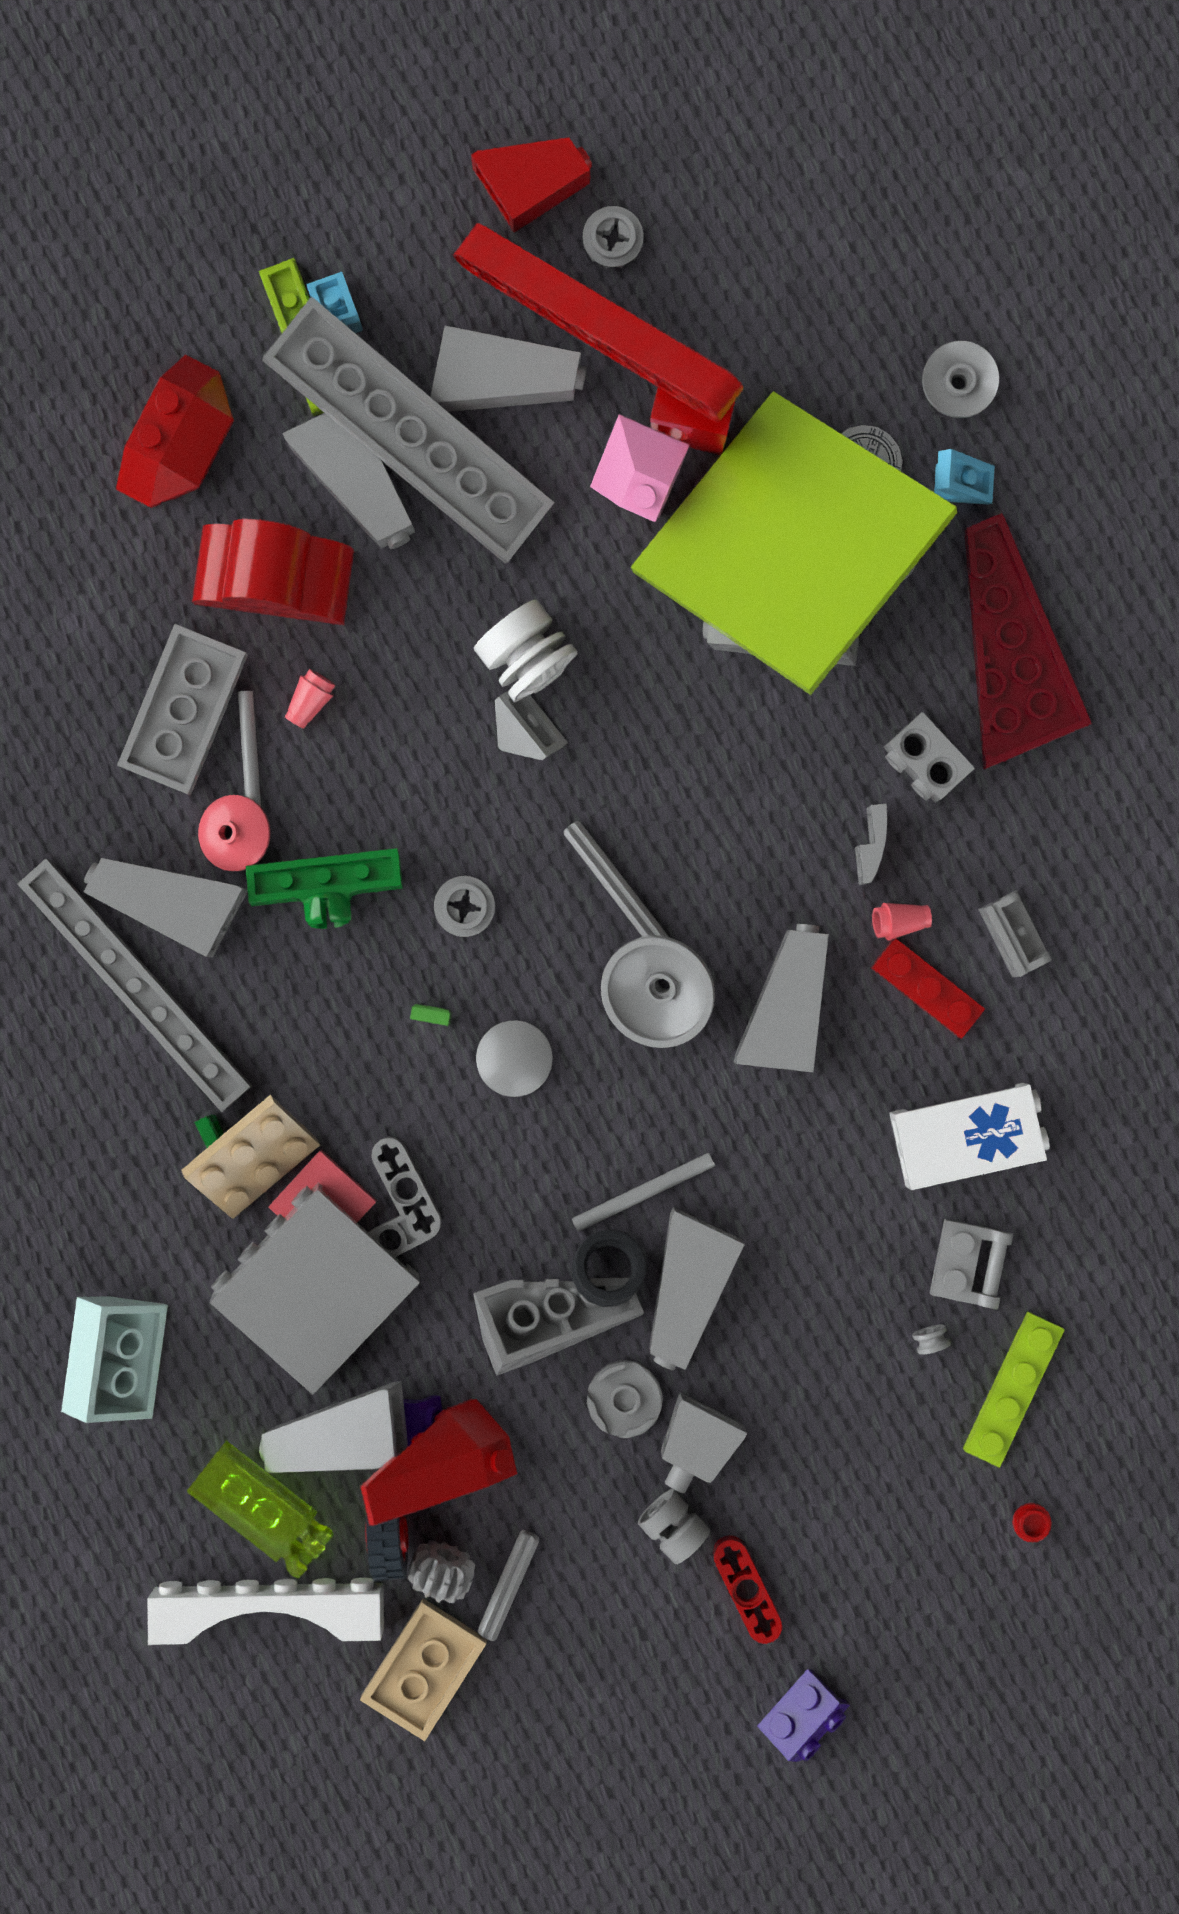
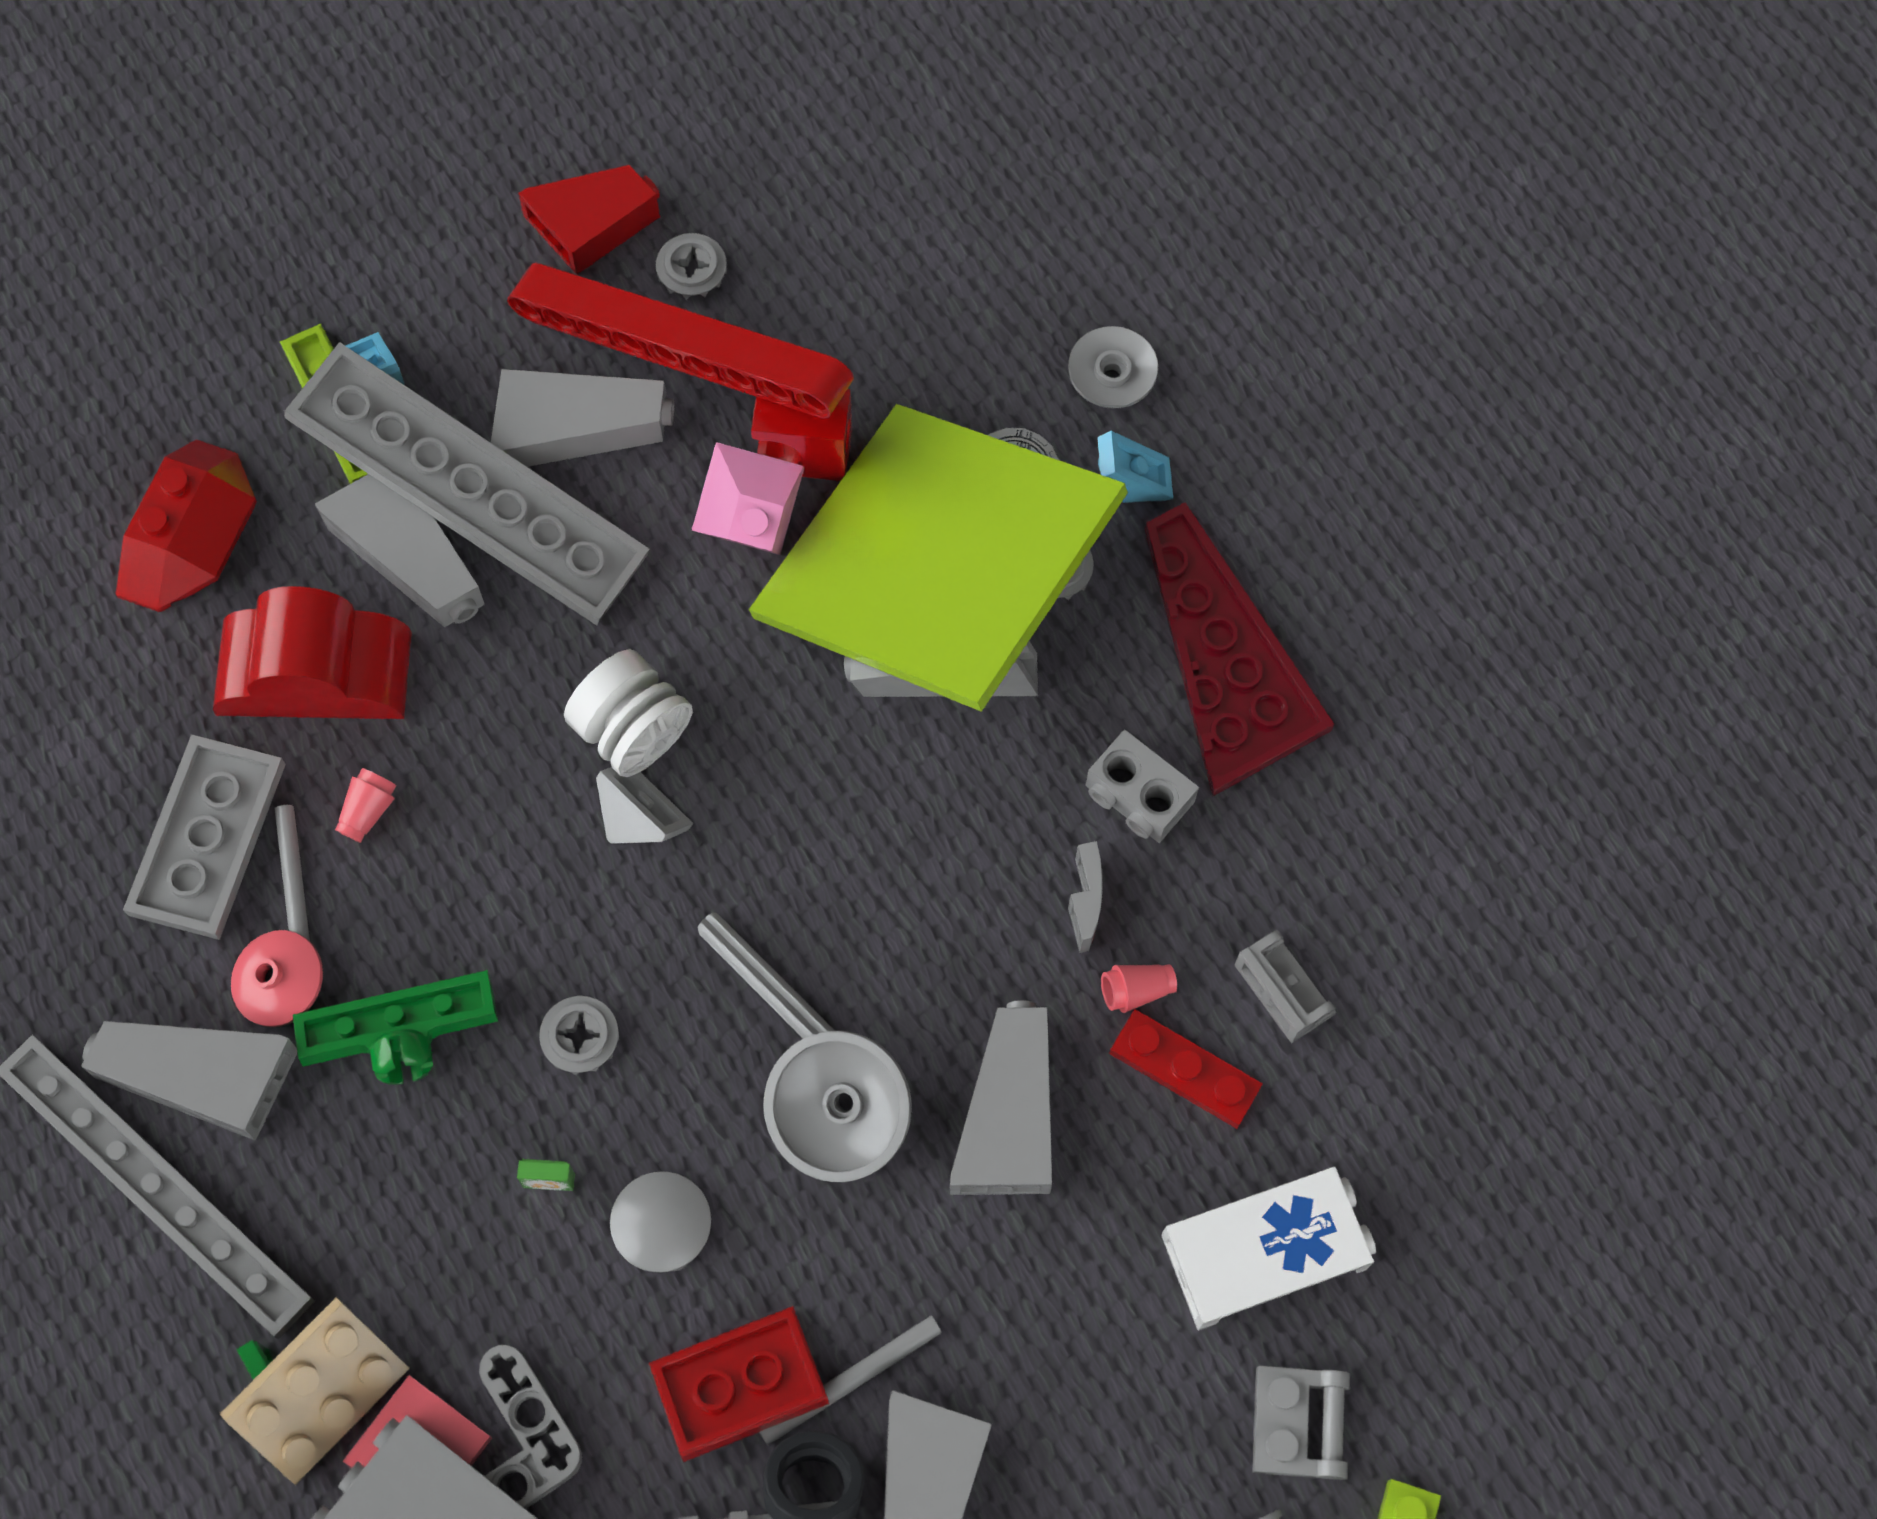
camera: 10 degrees left, 20 degrees down
(561, 1186) = (738, 1383): none -> red tile

